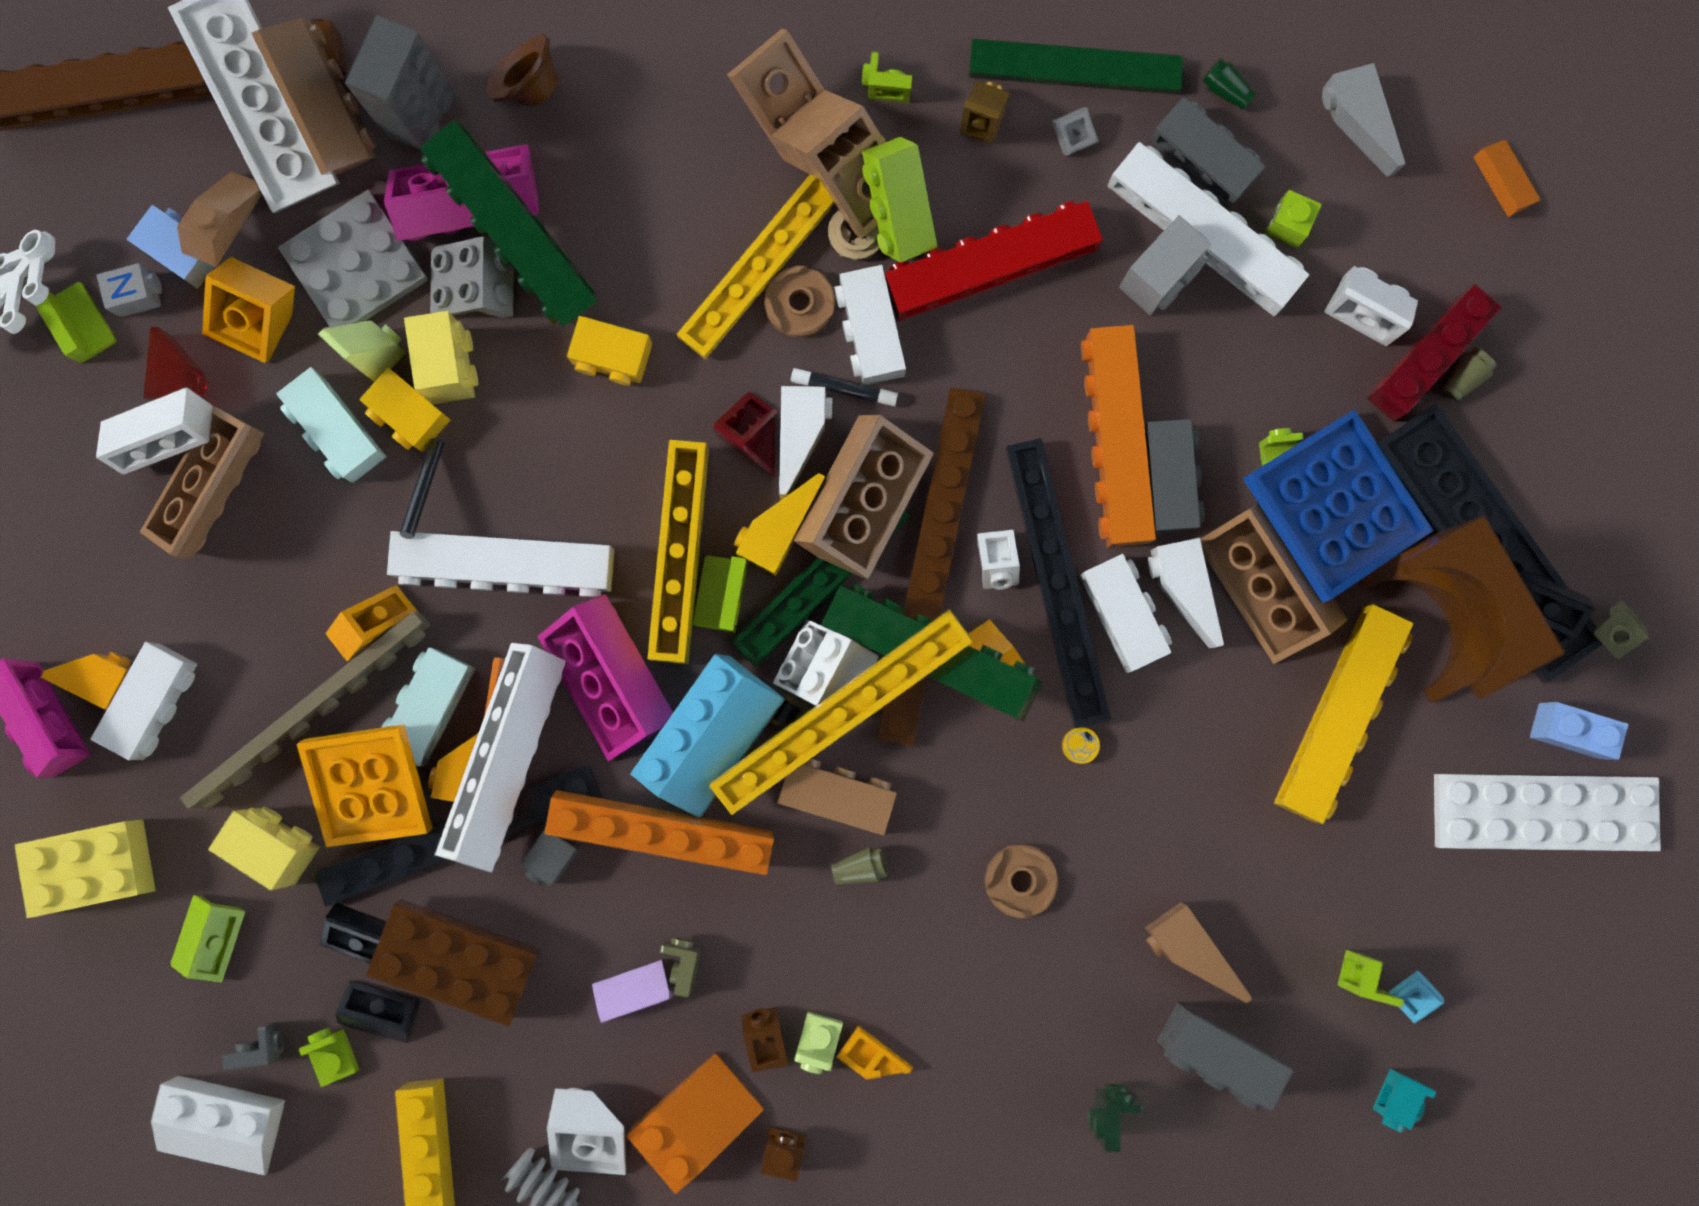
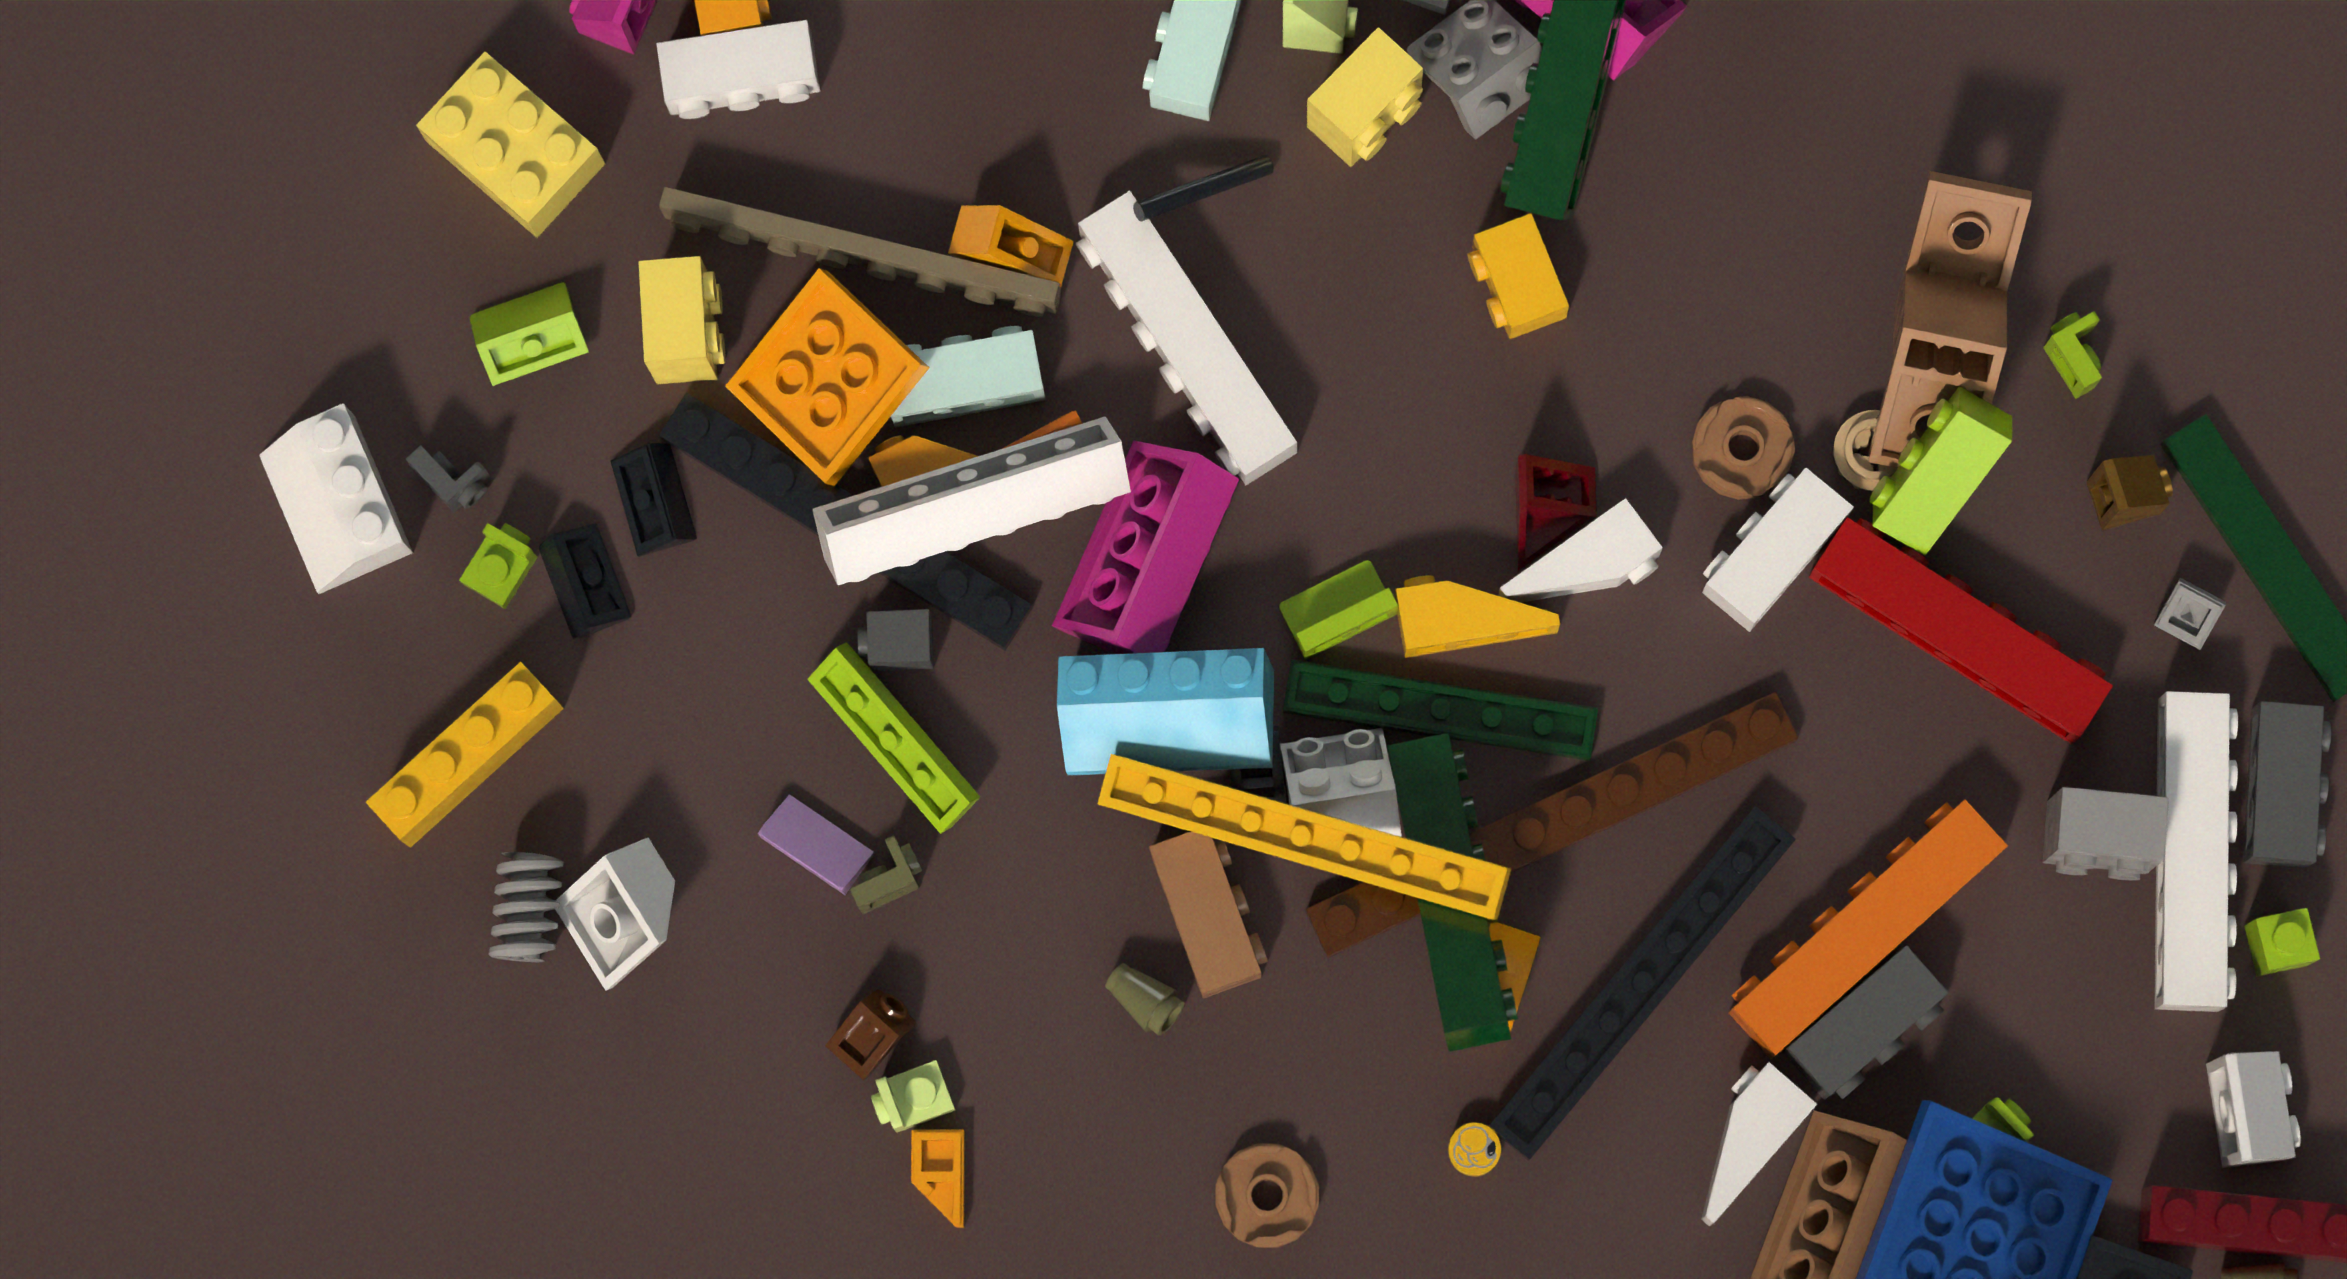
camera: 60 degrees right, 5 degrees down
(403, 409) = (1275, 102): yellow brick -> none
(452, 962) = (705, 620): reddish brown brick -> none
(604, 901) = (893, 737): none -> lime plate
(659, 832) = (1018, 740): orange brick -> none
(678, 552) = (1348, 525): yellow brick -> none
(694, 1123) = (723, 1023): orange slope -> none
(757, 267) = (1748, 369): yellow plate -> none
(783, 1154) = (760, 1147): reddish brown brick -> none
(844, 387) = (1682, 572): black bar -> none
(863, 495) = (1572, 685): medium nougat slope -> none
(998, 559) = (1617, 895): white bracket -> none
(1126, 613) = (1667, 1087): white brick -> none

